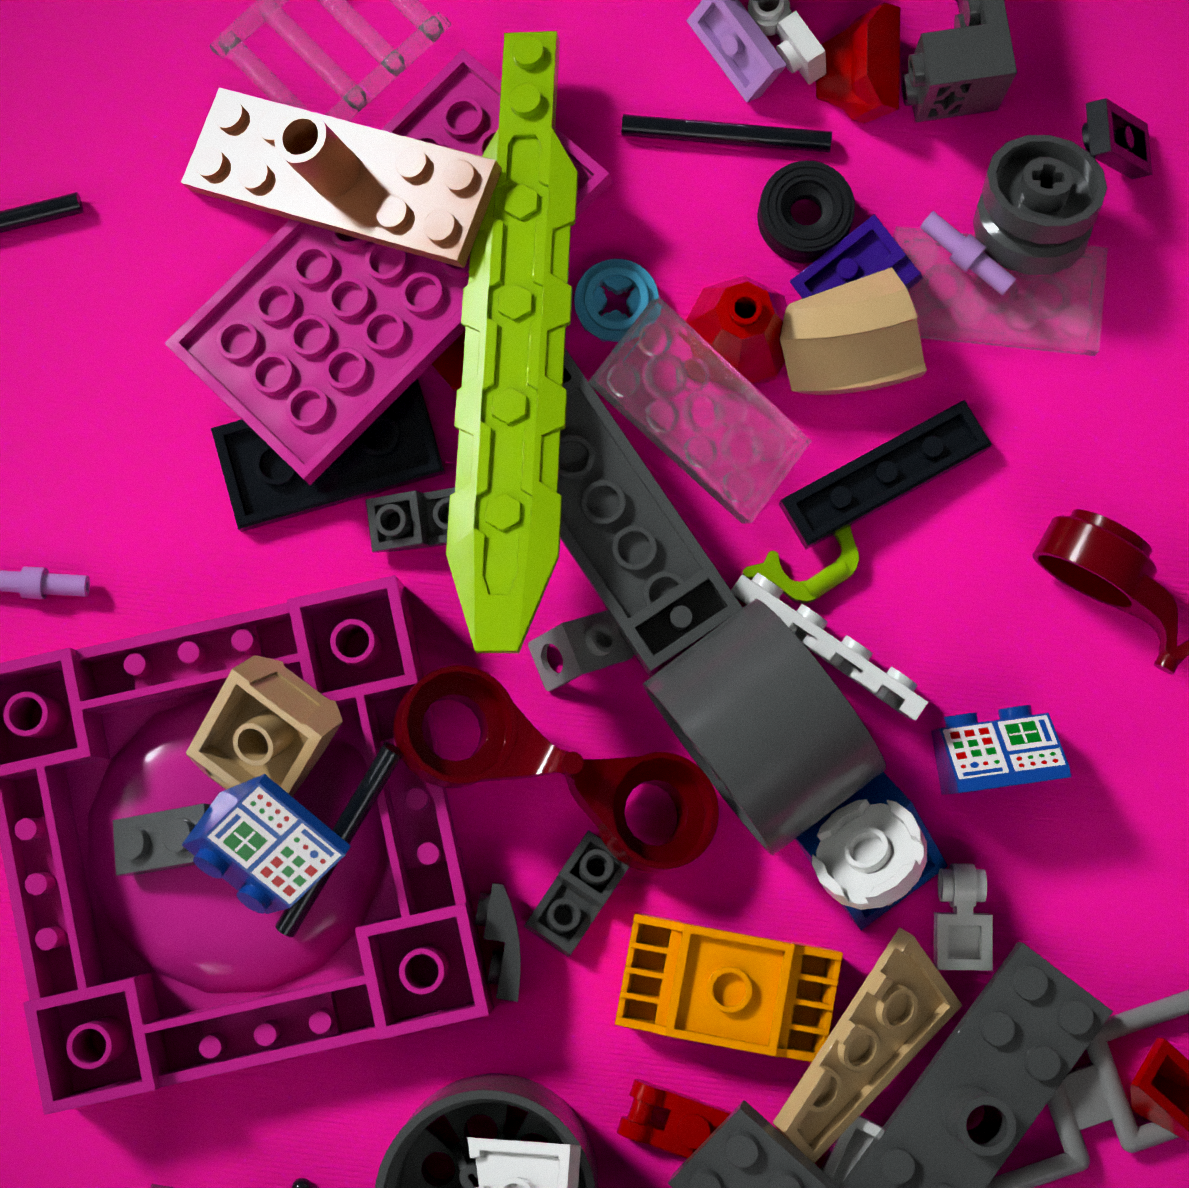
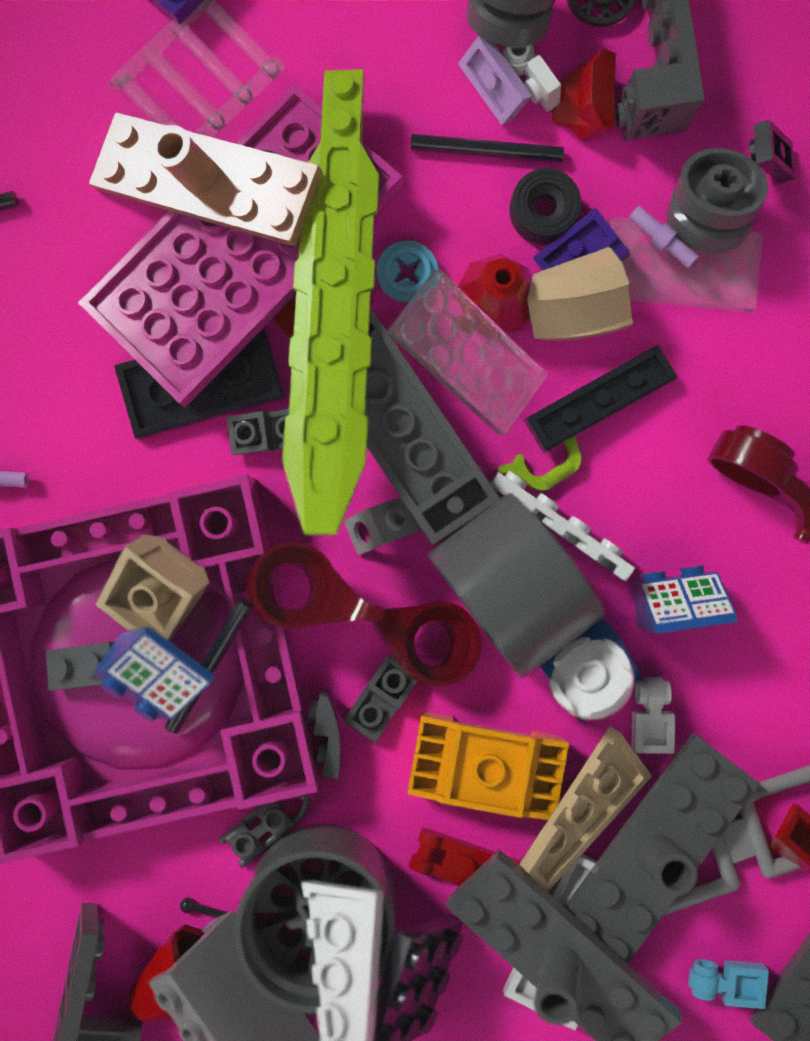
camera: 10 degrees left, 5 degrees up
(426, 1063) = (273, 818): none -> dark grey piece

